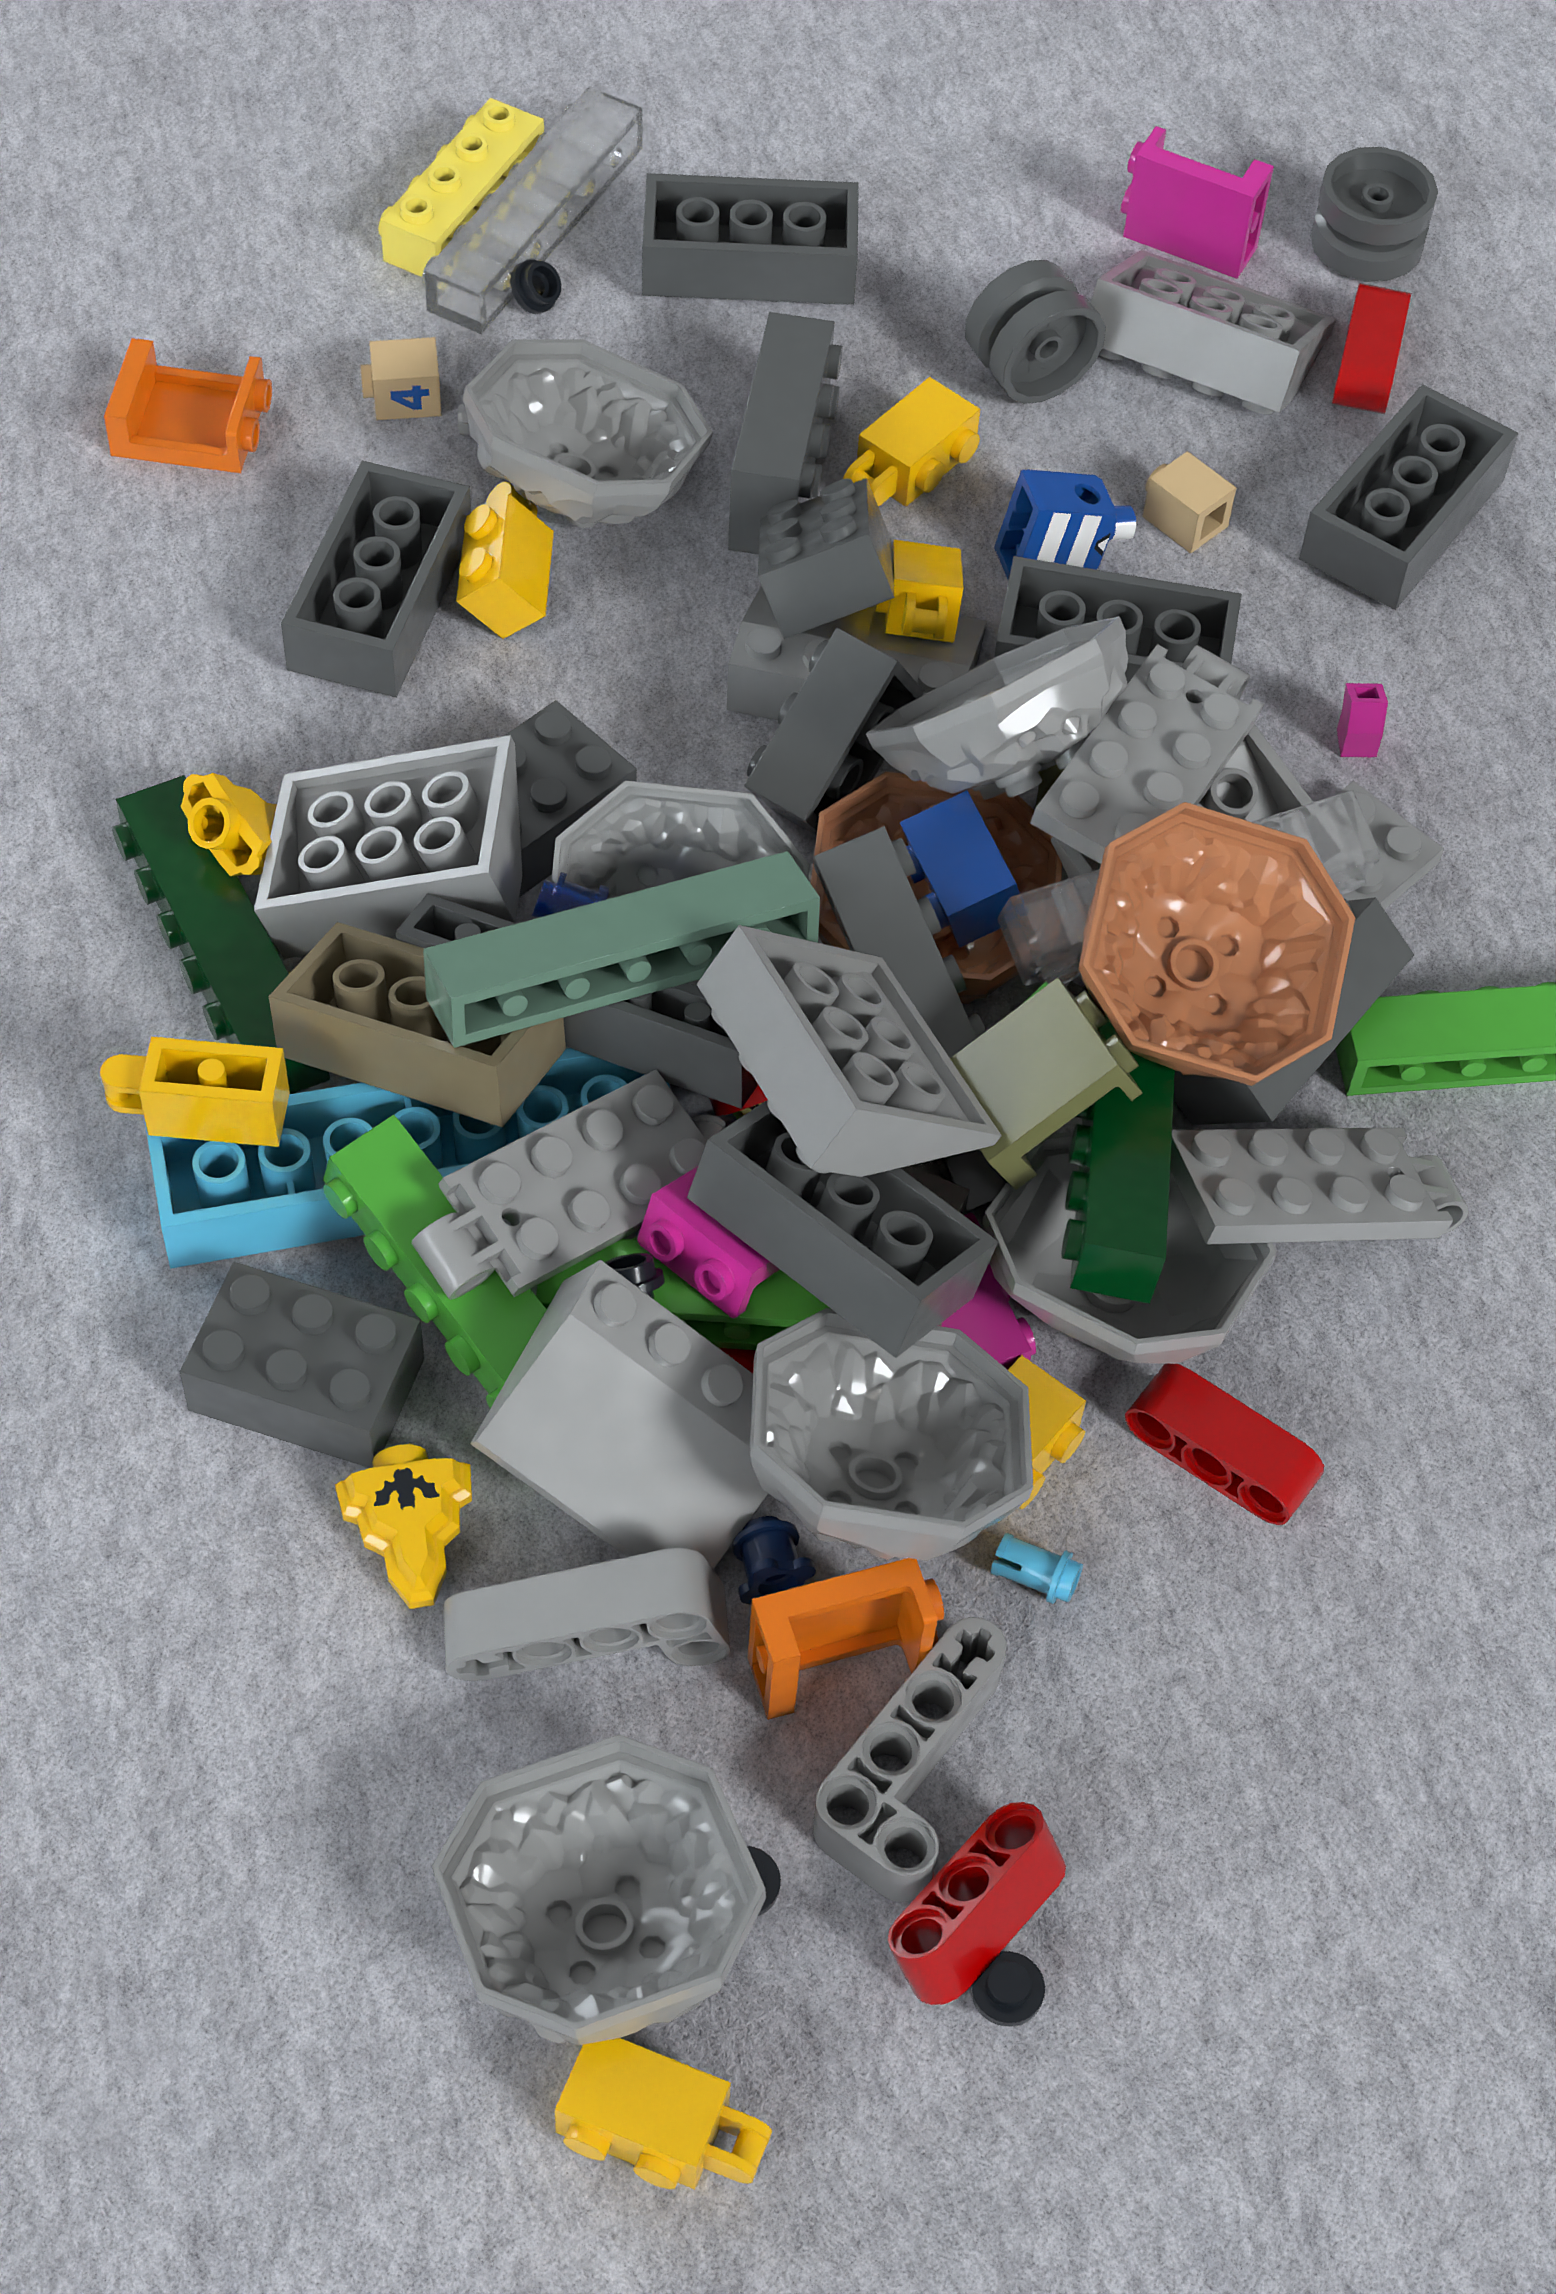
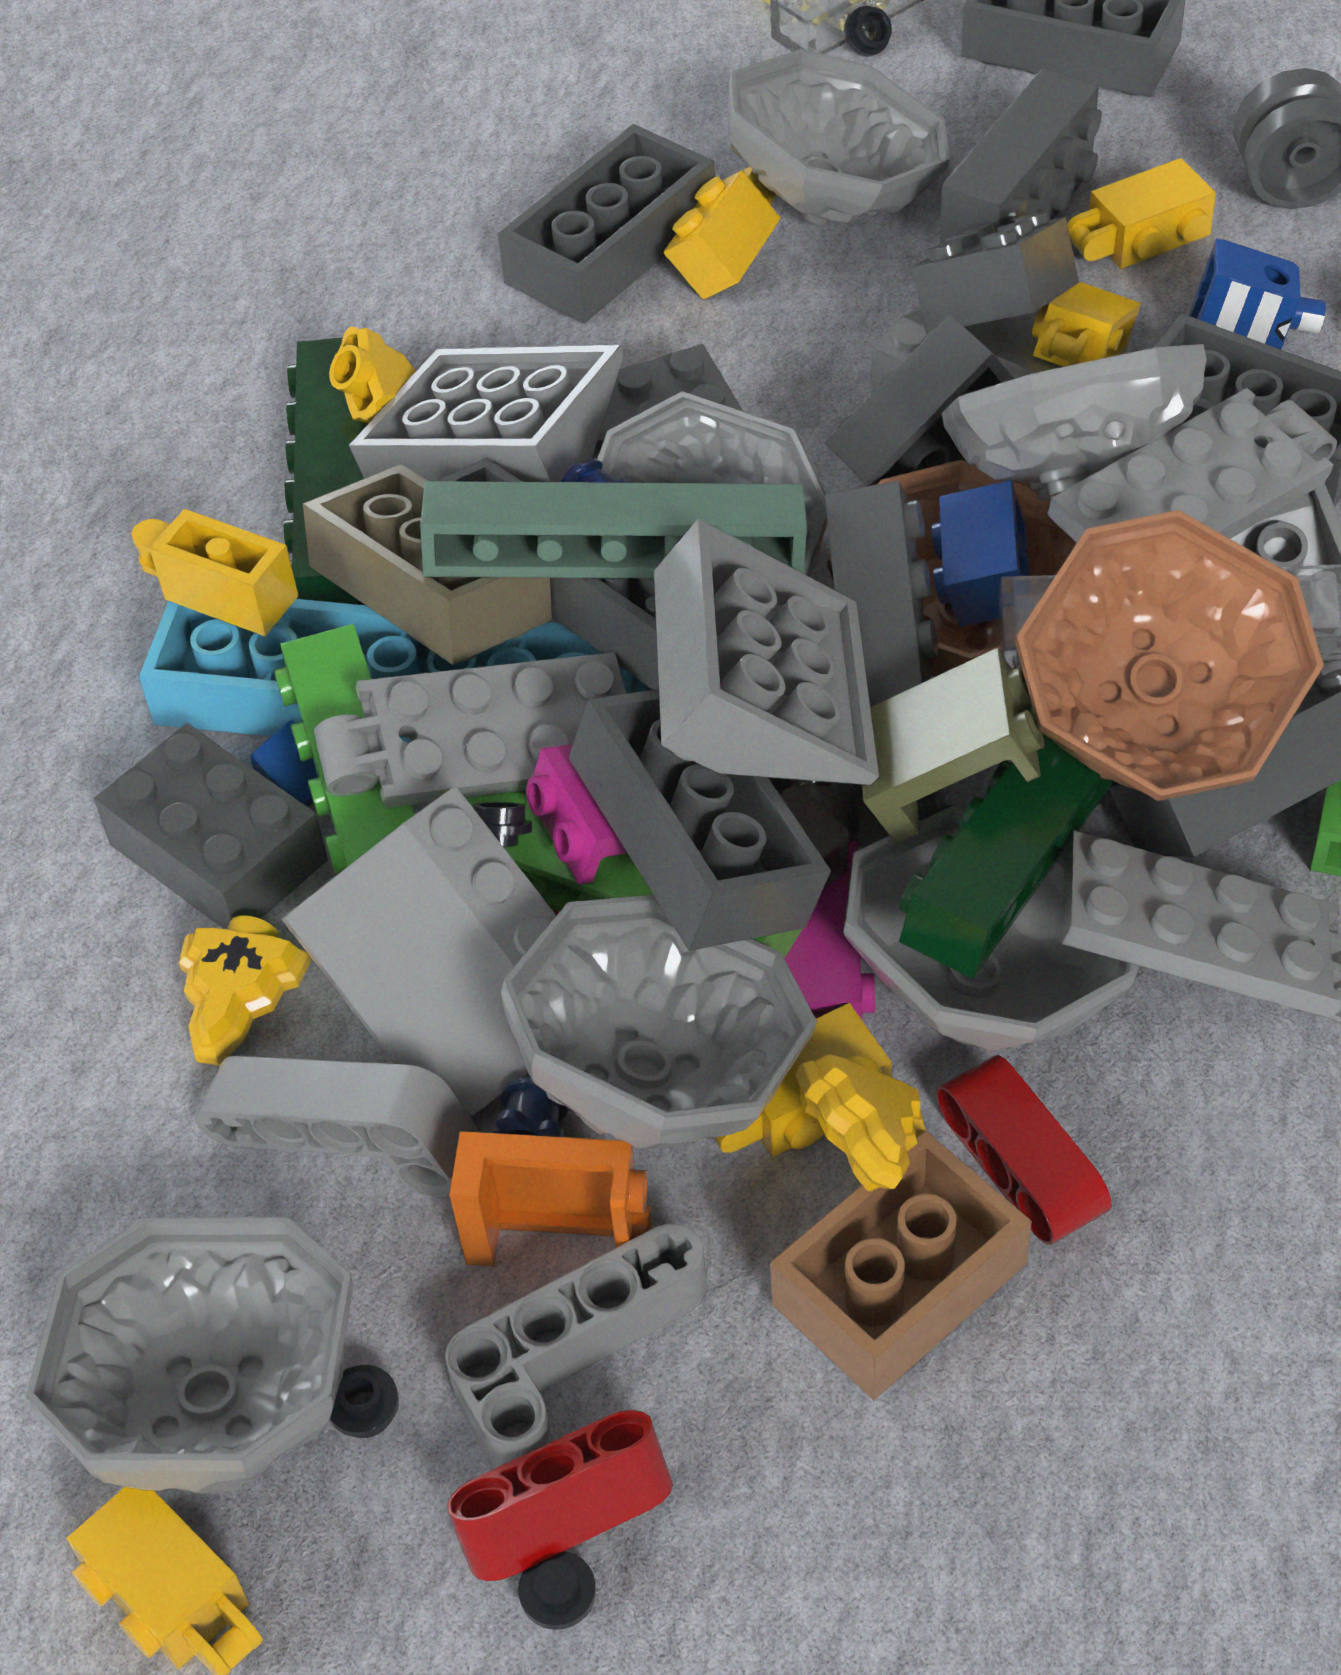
camera: 30 degrees right, 5 degrees down
(185, 413) = (521, 73): orange panel -> none
(346, 1267) = (280, 763): none -> blue slope
(403, 378) = (707, 74): tan brick -> none
(1037, 1568) = (779, 1204): medium azure pin -> none
(1101, 1463) = (863, 1115): none -> yellow rock
(1175, 1587) = (900, 1266): none -> medium nougat brick

